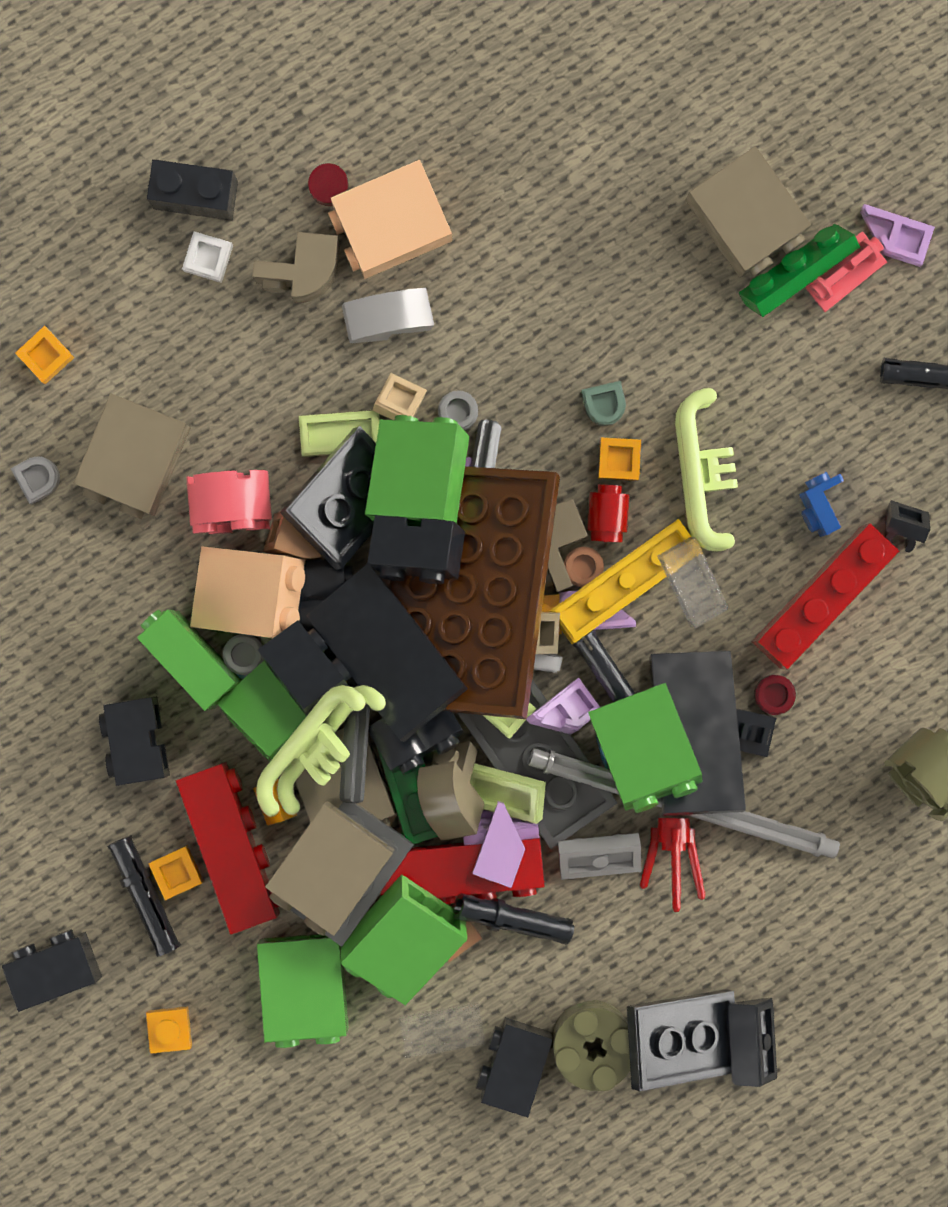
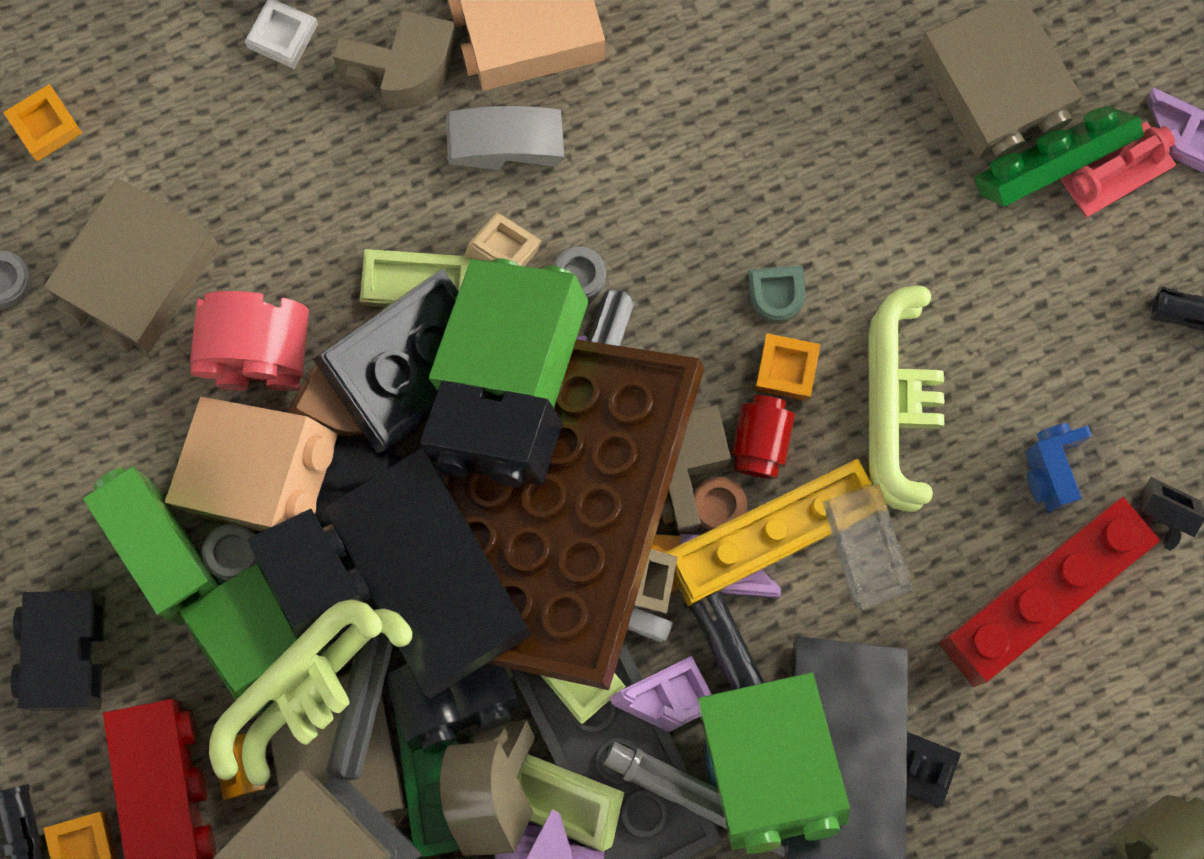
camera: 15 degrees right, 10 degrees down
(775, 694) = (962, 721): dark red tile -> none

